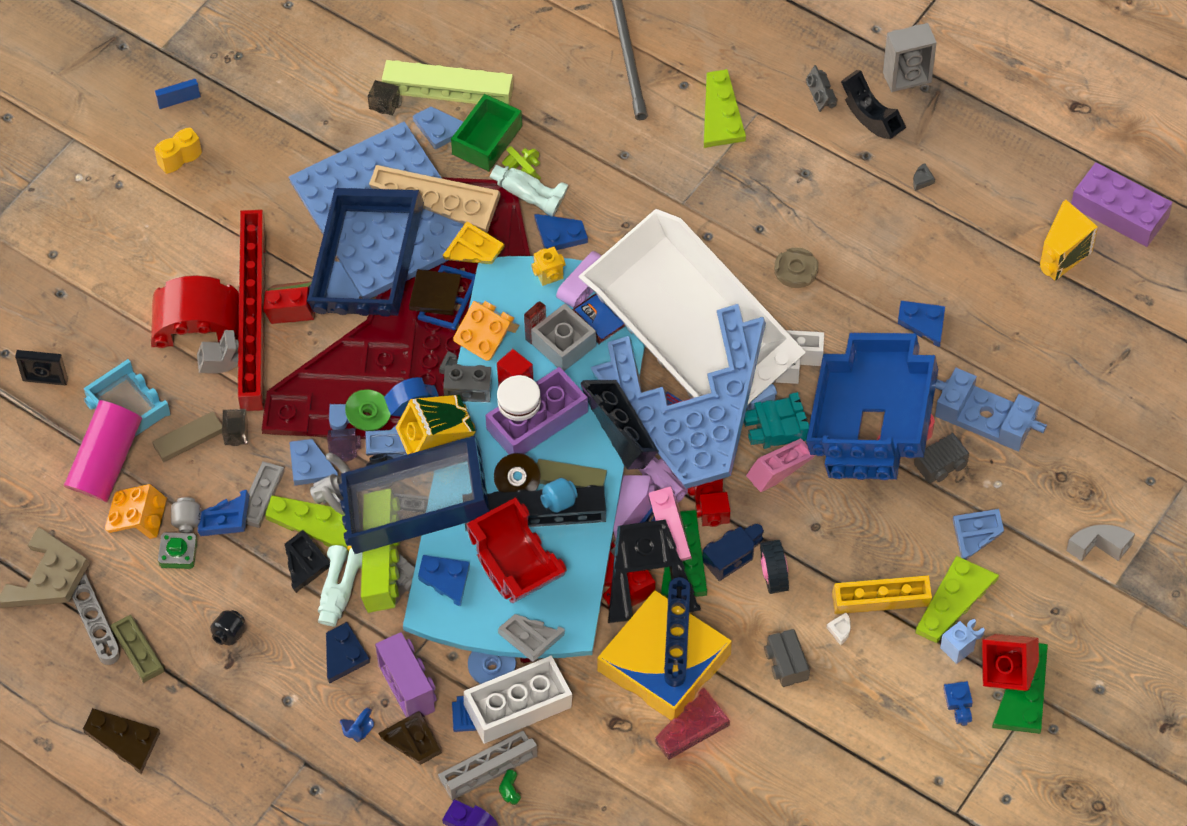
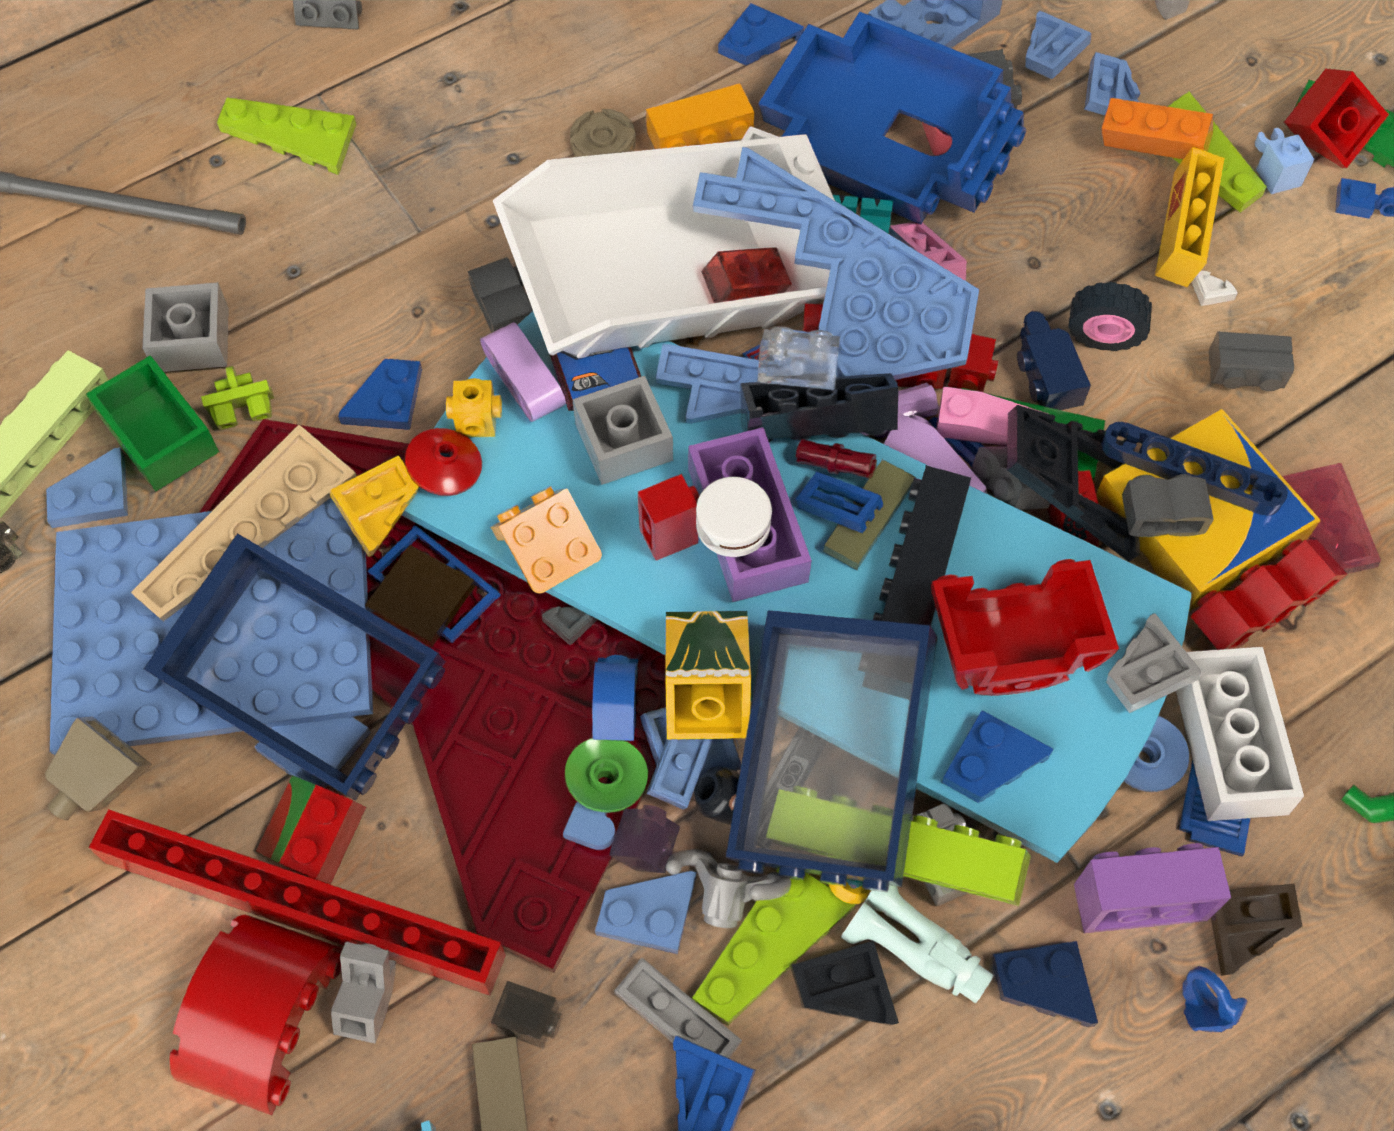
camera: 70 degrees left, 5 degrees up
(284, 195) = (91, 768): none -> dark tan torso
(469, 382) = (638, 596): dark grey brick -> none
(489, 768) = (1343, 827): light grey fence -> none
(505, 273) = (438, 473): none -> red dish
(512, 463) = (861, 582): dark brown dish -> none
(530, 188) = (298, 399): light aqua piece -> none
(532, 318) = (580, 456): clear red tile -> none
(553, 120) = (186, 326): none -> light grey brick
(558, 495) = (935, 523): dark azure head -> none
(564, 466) = (835, 507): none -> blue tile
(595, 446) = (836, 458): none -> dark red pin
(618, 700) = (1267, 594): none -> red brick
(637, 398) = (798, 358): none -> clear brick
(640, 620) = (1167, 506): none -> dark grey brick
(698, 362) = (745, 274): none -> clear red brick
(828, 311) = (701, 119): none -> light orange brick
(942, 558) = (1156, 128): none -> orange brick
(998, 486) = (1054, 45): none -> medium blue wing

